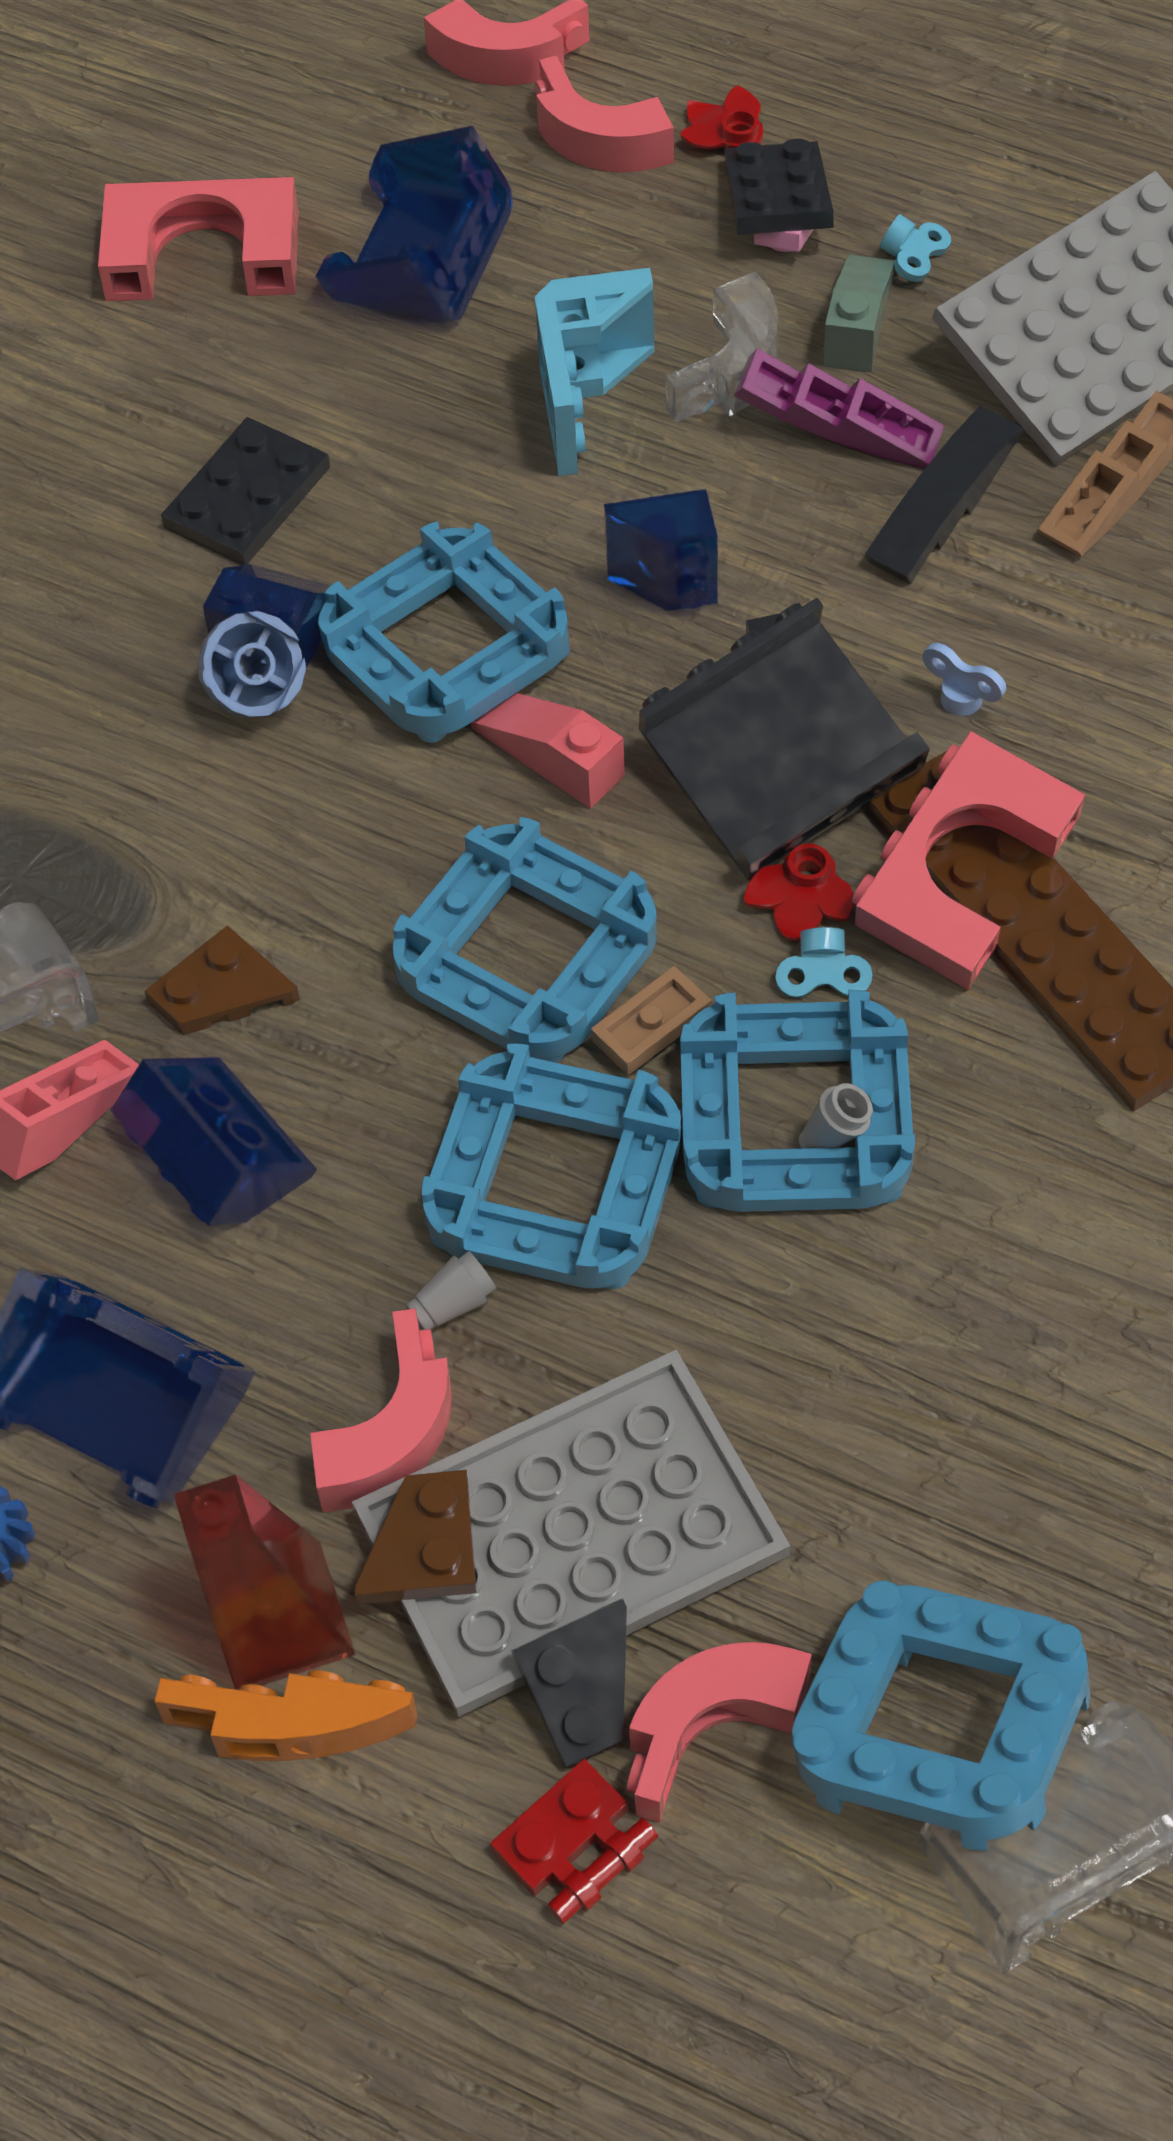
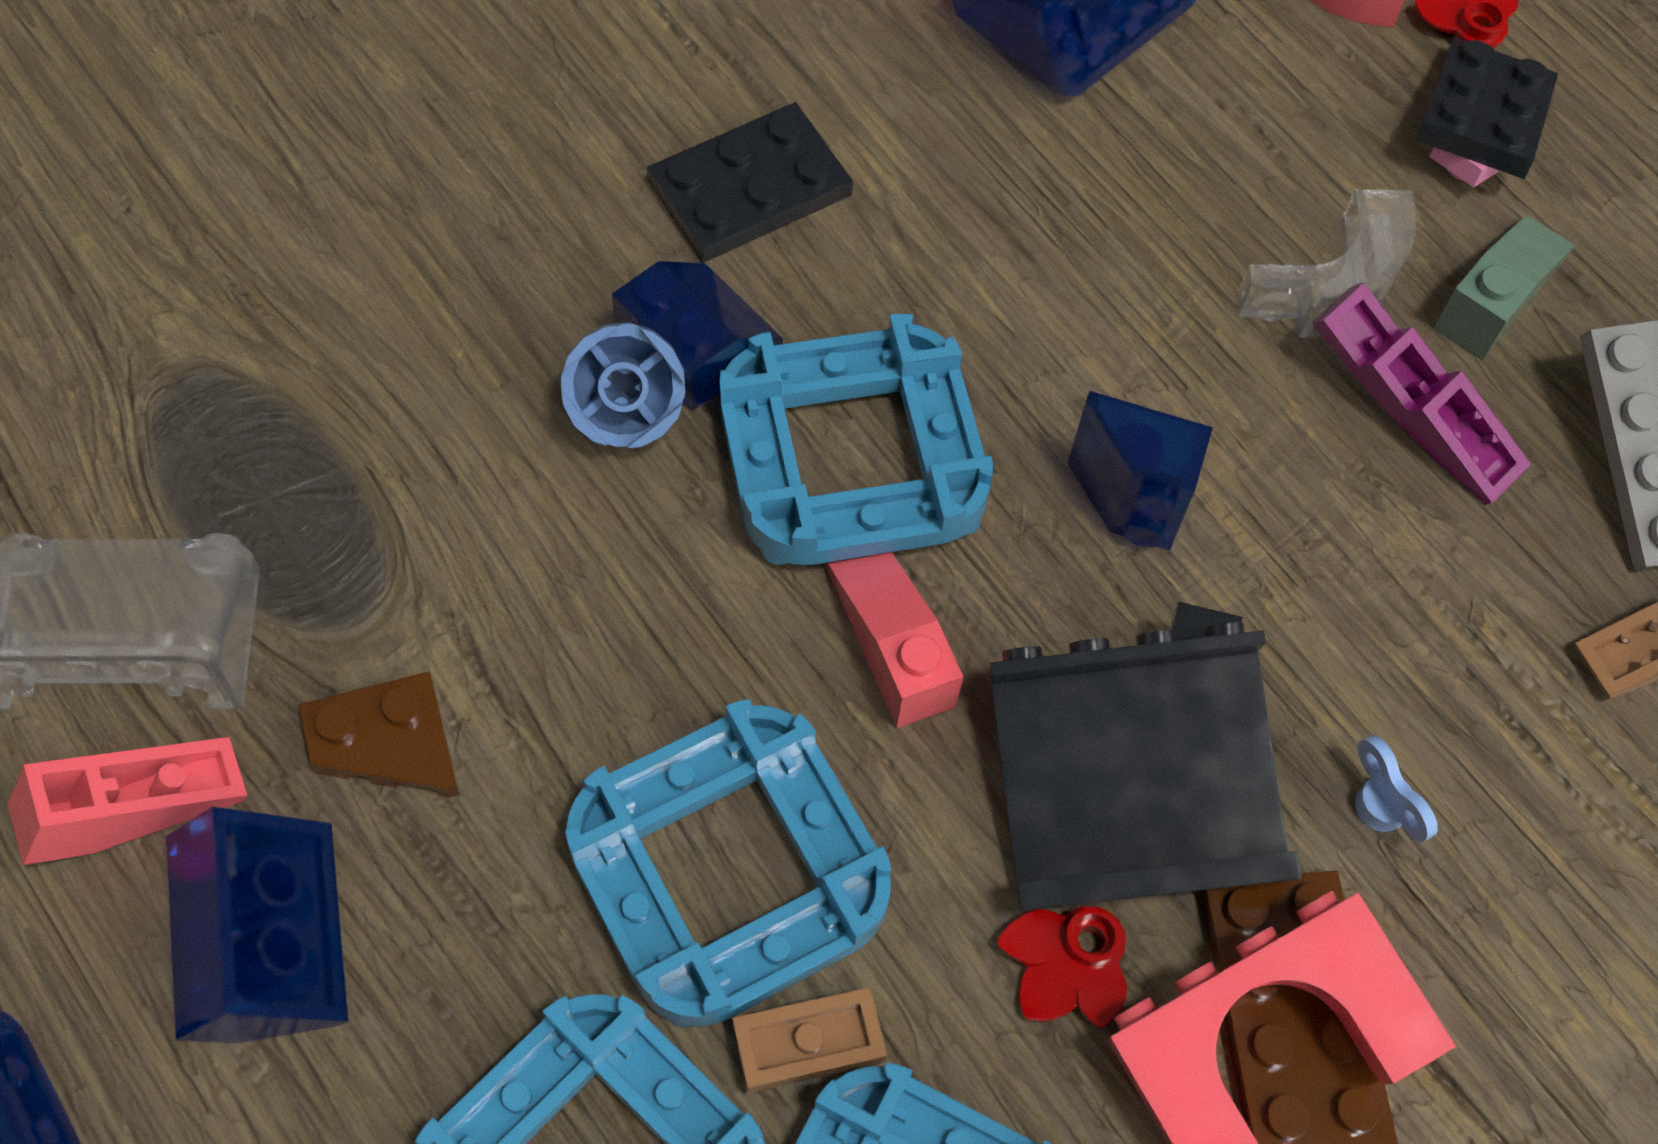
camera: 20 degrees right, 5 degrees up
(591, 326) = (1201, 167): medium azure bracket -> none
(822, 964) = (1044, 1073): medium azure piece -> none
(914, 246) = (1604, 240): medium azure piece -> none
(943, 493) = (1489, 548): black slope -> none

